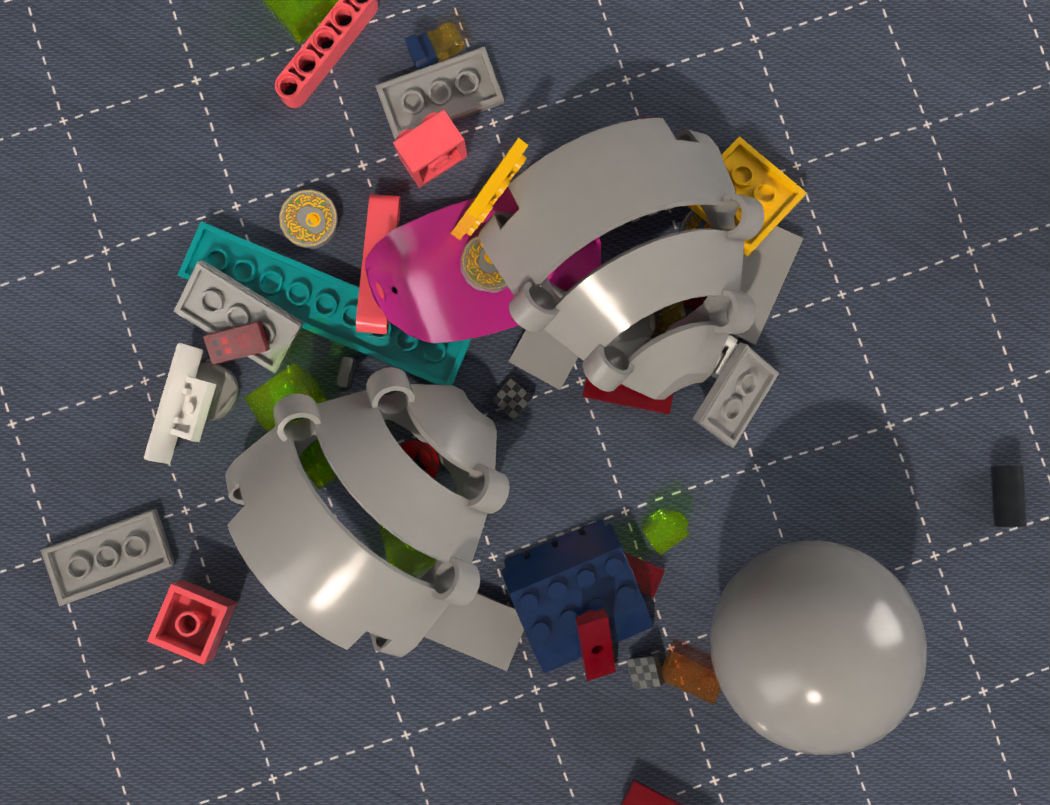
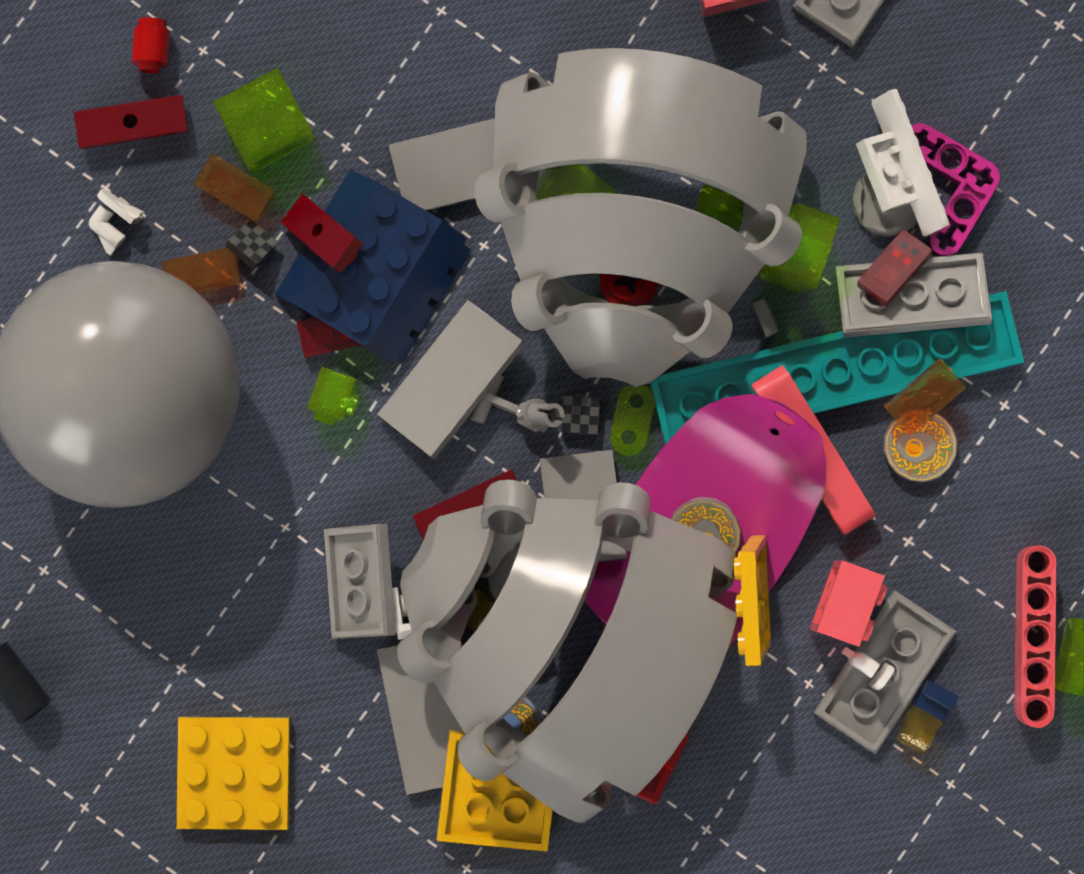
camera: 150 degrees right, 0 degrees up
(152, 362) = (966, 186): none -> dark pink beam
(280, 244) = (924, 396): none -> clear orange plate
(444, 88) = (869, 667): none -> white piece
(481, 371) = (632, 419): none -> clear neon green plate
(544, 423) = (532, 414): none -> light grey pin
(577, 750) = (264, 120): none -> clear neon green brick
(579, 484) = (451, 379): none -> light grey tile
(629, 718) = (234, 188): none -> clear orange plate
(720, 767) = (108, 234): none -> white piece
(904, 334) = (233, 773): none -> yellow plate

